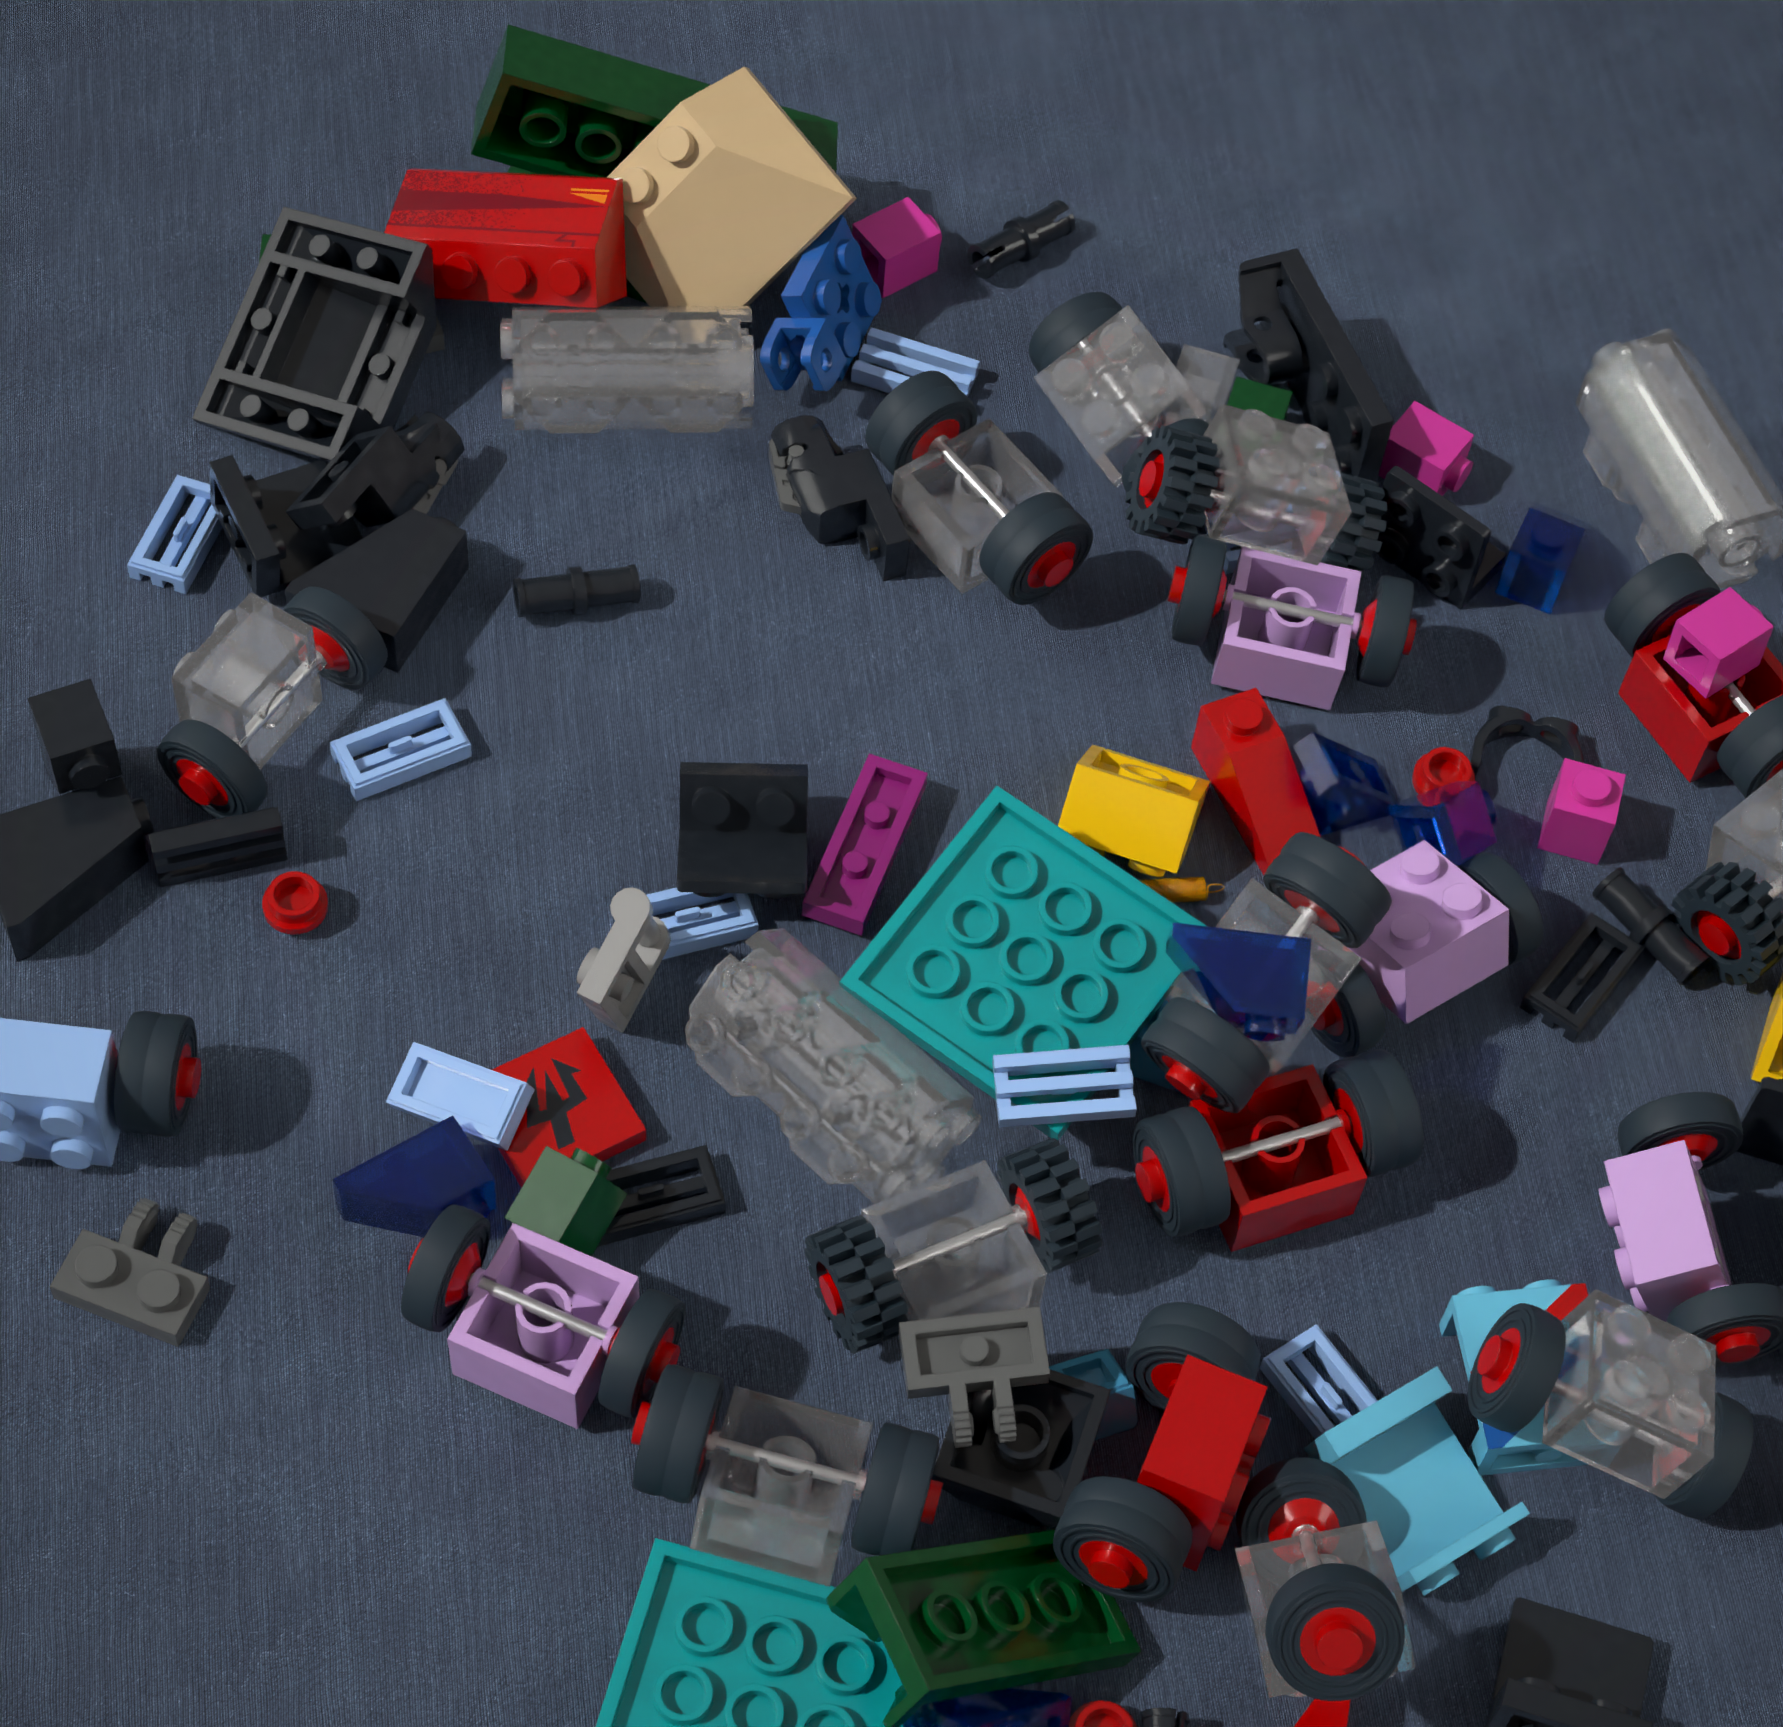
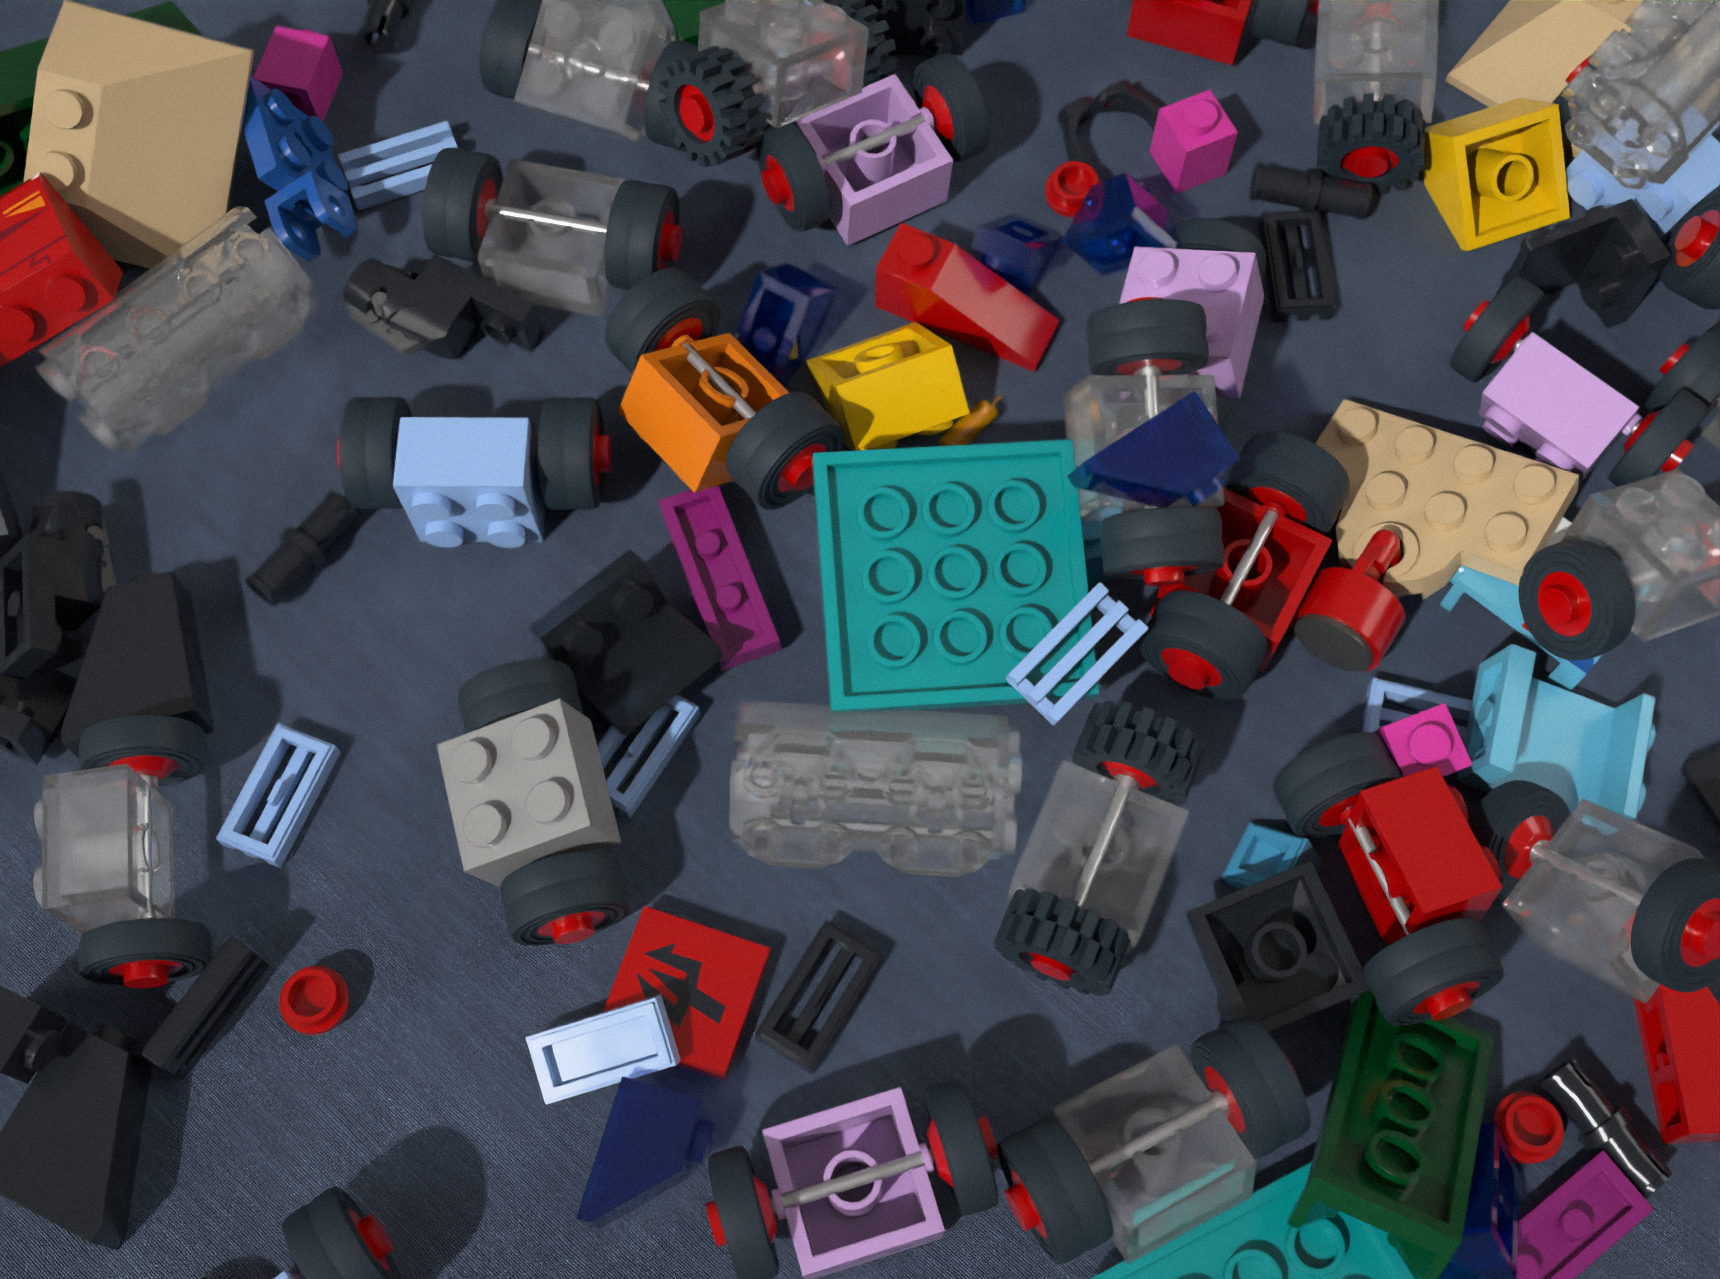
camera: 35 degrees left, 10 degrees up
(555, 880) = (535, 803): none -> brick
(568, 1200) = (775, 1067): dark green brick -> none
(621, 970) = (643, 852): light grey plate -> none
(749, 629) = (473, 474): none -> brick
(971, 698) = (708, 399): none -> brick
(975, 1355) = (1204, 925): dark grey hinge -> none
(1086, 701) = (784, 318): none -> clear blue slope
(1295, 1390) = (1426, 742): none -> dark pink brick
(1469, 1216) = (1411, 519): none -> tan plate

